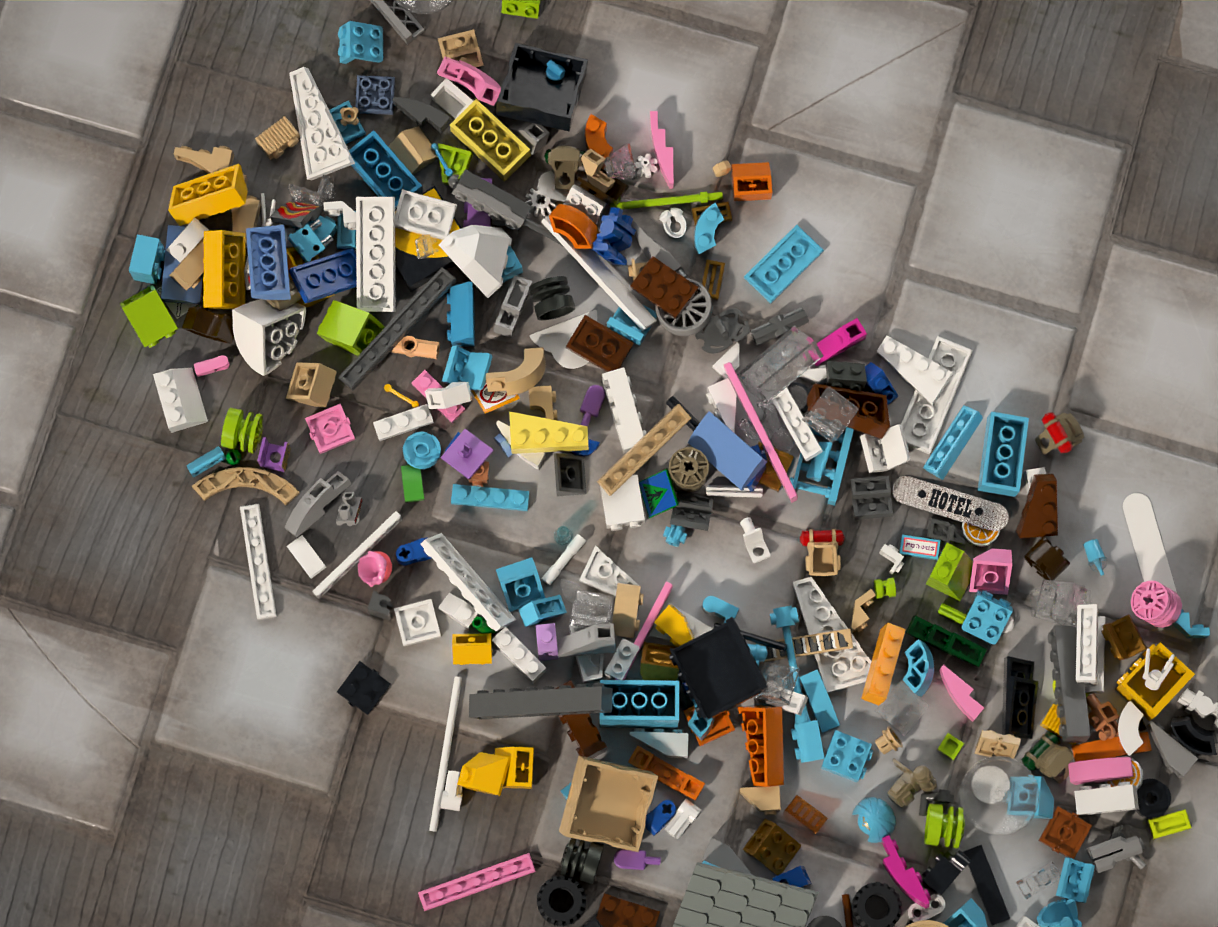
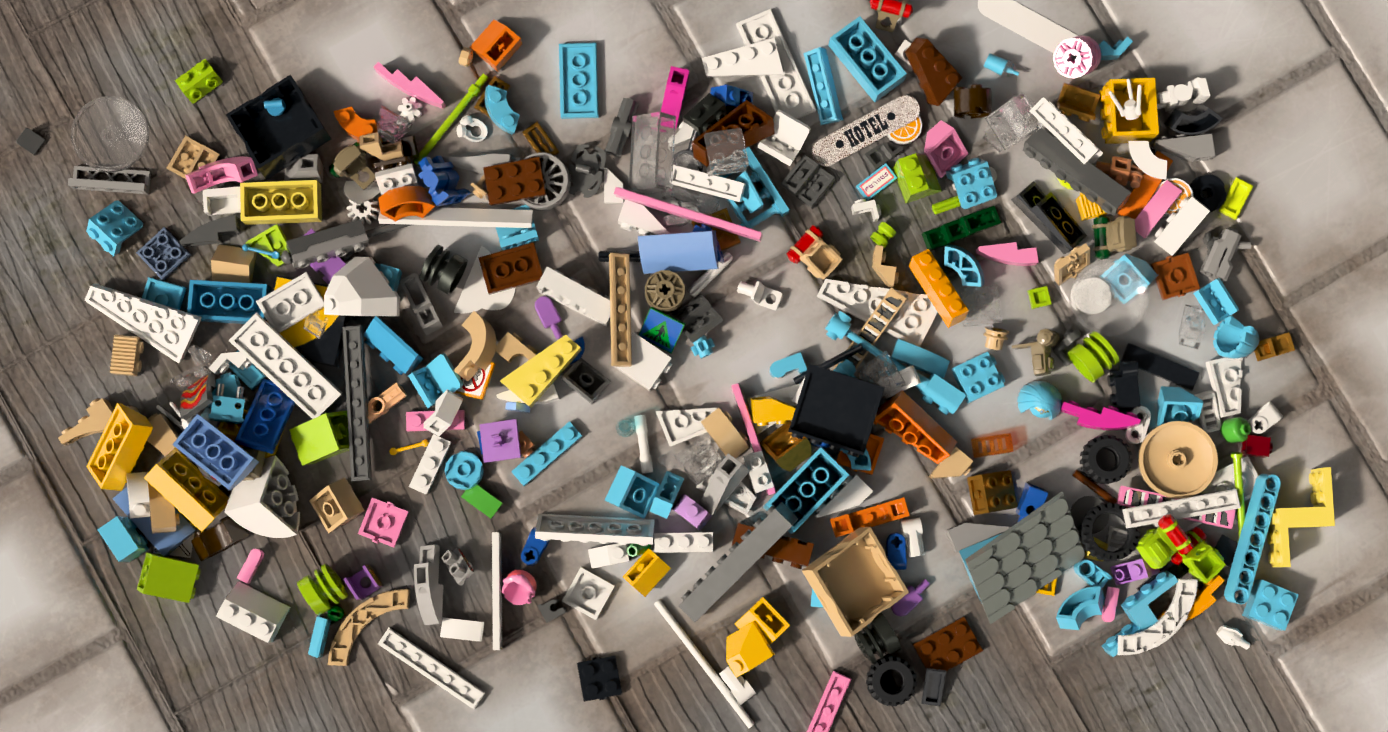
camera: 50 degrees left, 5 degrees up
(349, 111) = (166, 287): tan plate -> none

